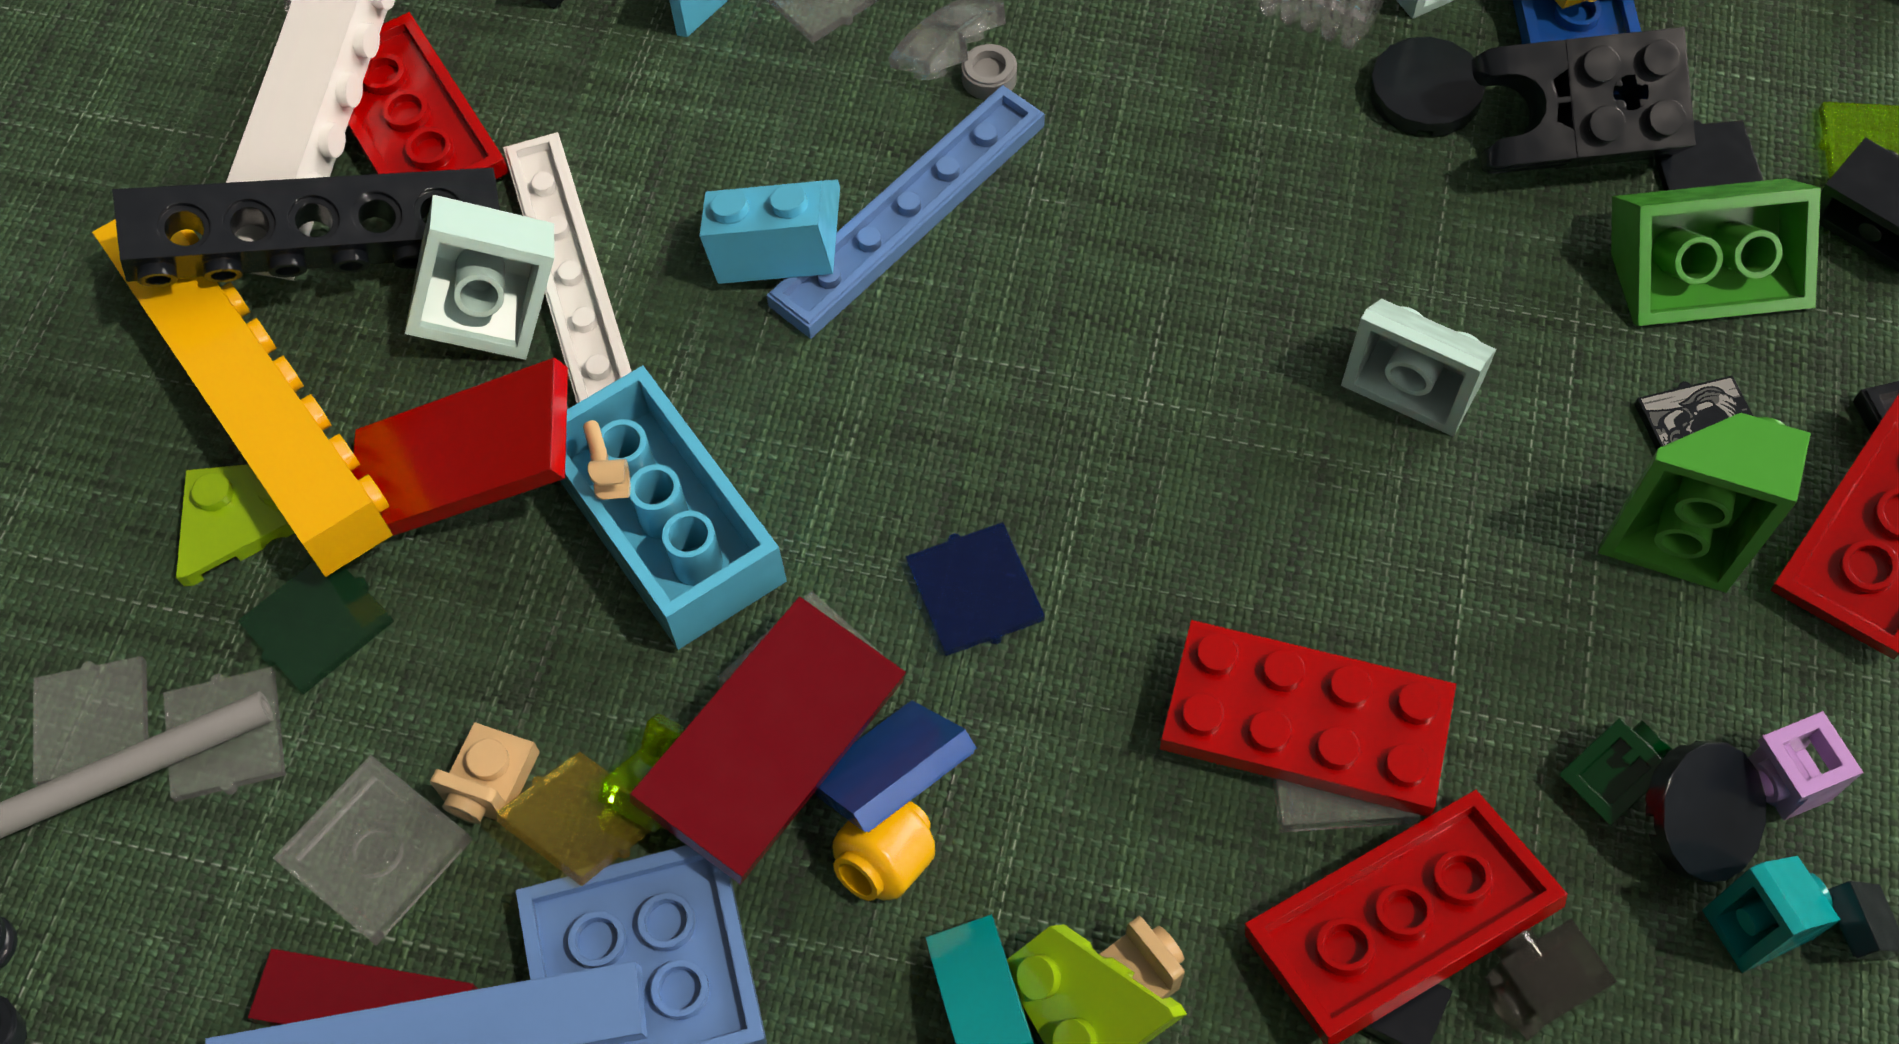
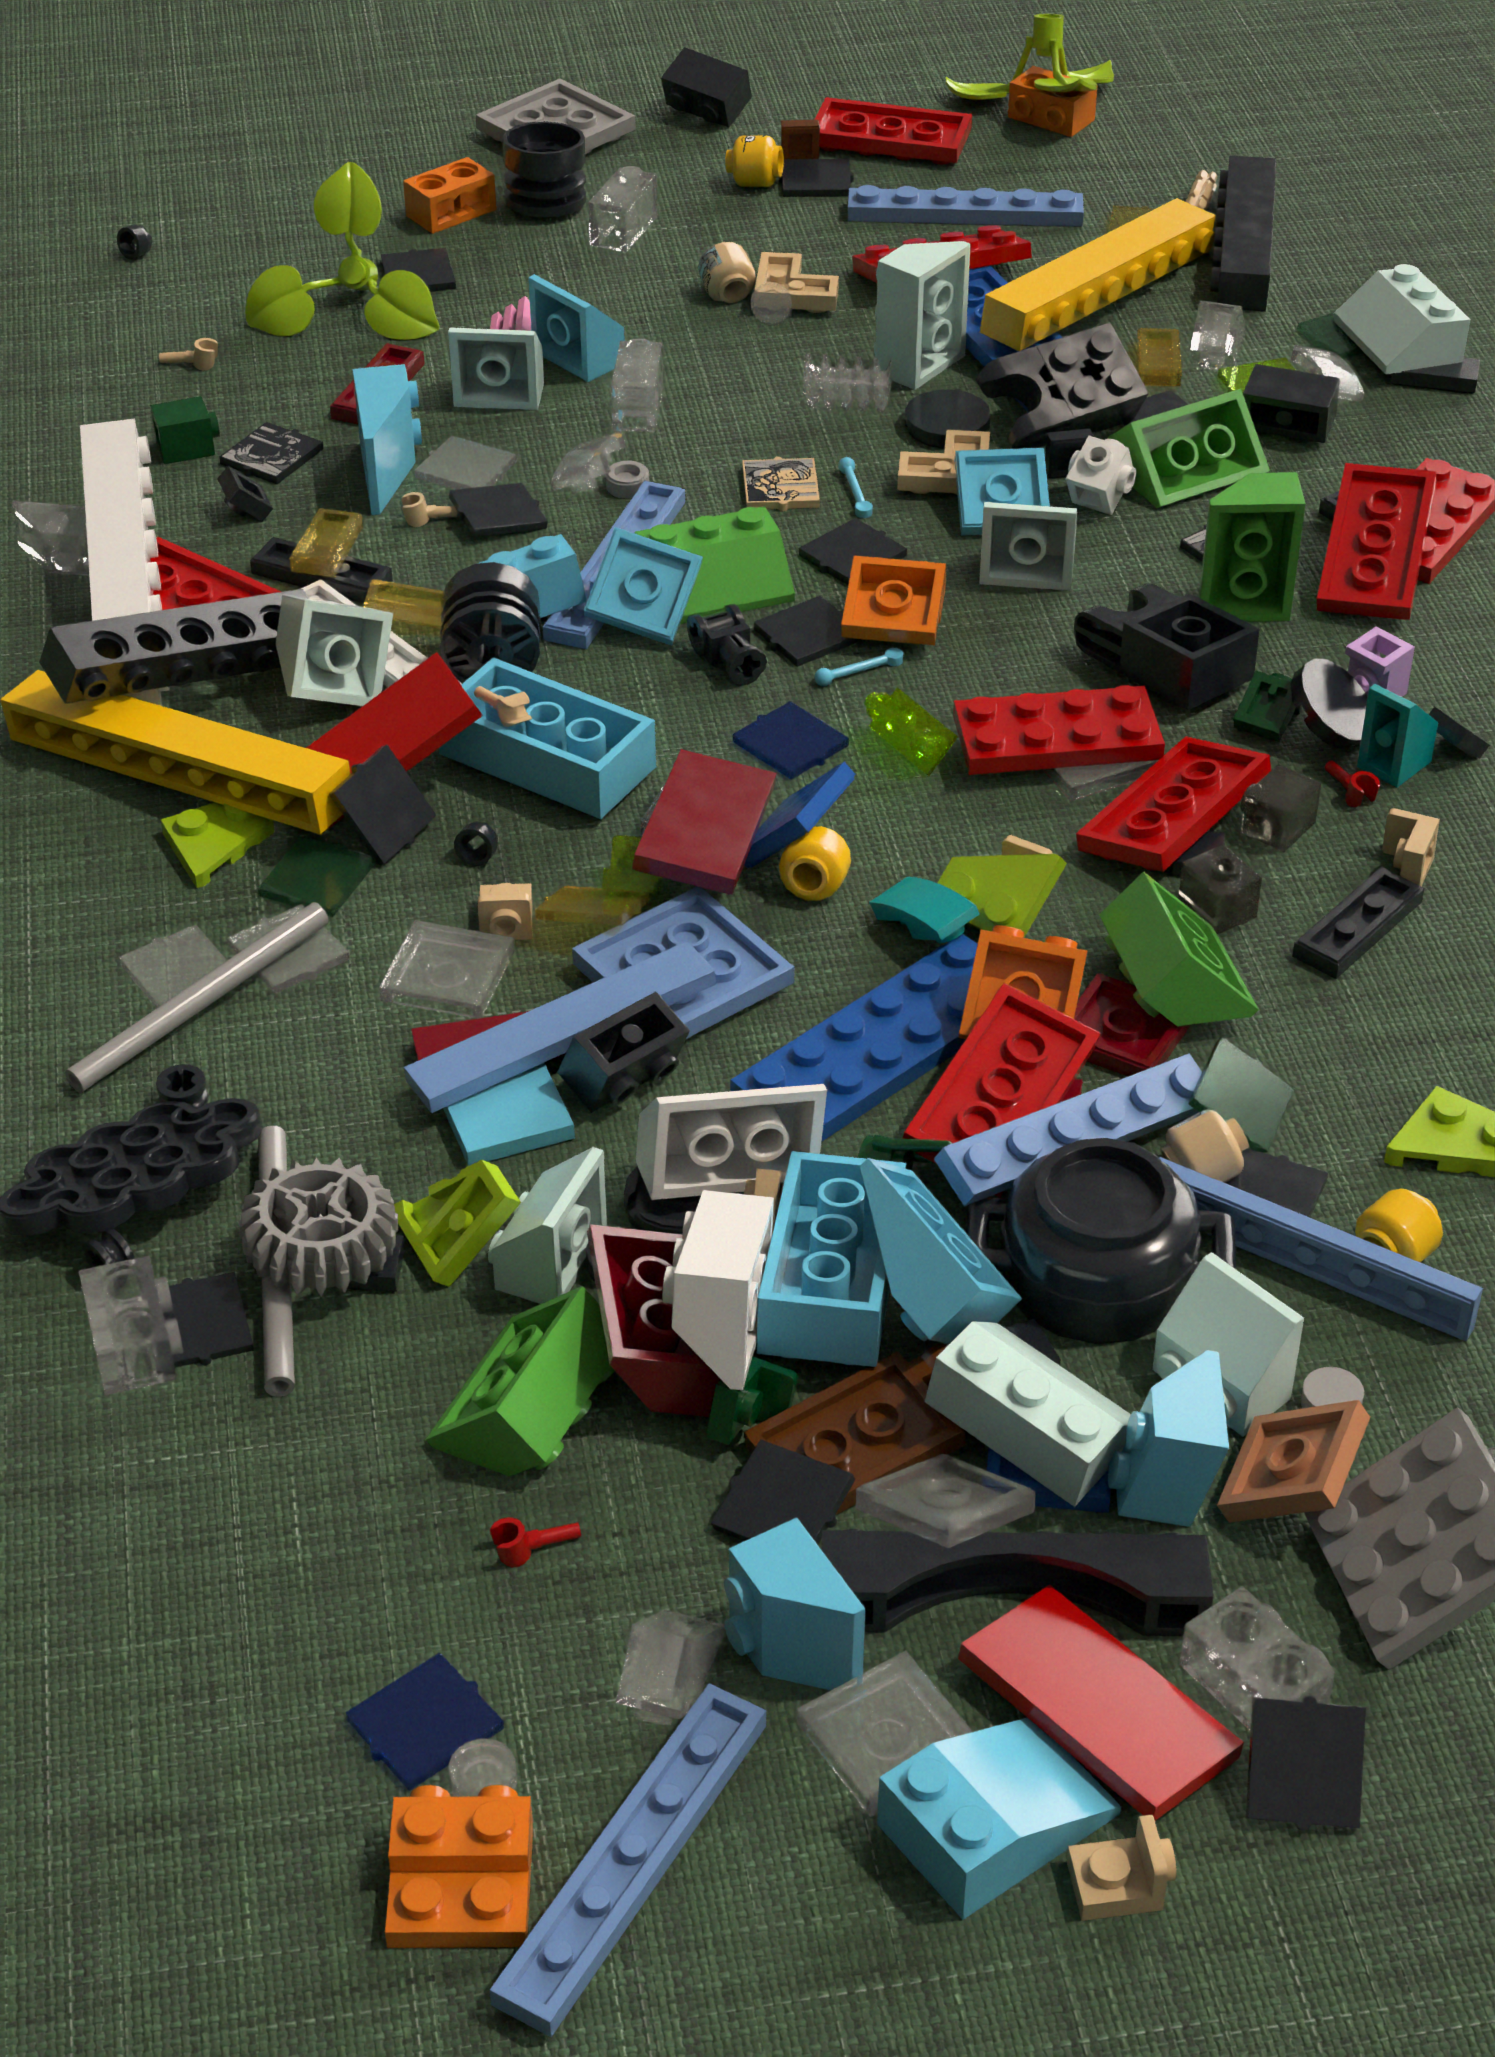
camera: 25 degrees left, 20 degrees down
(413, 556) = (382, 804): none -> black piece
(507, 645) = (484, 851): none -> black hinge
(578, 115) = (350, 581): none -> black tile
(585, 80) = (326, 542): none -> clear yellow tile
(636, 209) = (406, 602): none -> clear yellow tile
(682, 294) = (489, 615): none -> black wheel
(726, 54) = (418, 513): none -> tan hand
(814, 77) = (498, 509): none -> black piece
(898, 282) = (643, 586): none -> medium azure tile
(967, 395) = (726, 640): none -> black connector
(1010, 265) = (740, 561): none -> bright green slope
(1087, 401) = (805, 631): none -> black piece
(1123, 638) = (909, 728): none -> clear neon green hinge
(1169, 485) = (892, 657): none -> medium azure hinge
(1170, 133) = (781, 483): none -> piece
(1202, 403) = (894, 600): none -> orange plate
(1205, 279) = (836, 549): none -> black piece
(1252, 207) = (863, 508): none -> medium azure hinge
(1391, 187) = (936, 471): none -> tan plate
(1433, 247) = (998, 477): none -> medium azure tile
(1531, 613) = (1171, 644): none -> black brick
(1551, 203) = (1060, 448): none -> black tile
(1573, 260) = (1100, 474): none -> white brick
(1677, 954) = (1357, 785): none -> red hand
(1751, 57) = (1159, 356): none -> clear yellow tile
(1840, 55) = (1217, 335): none -> clear slope

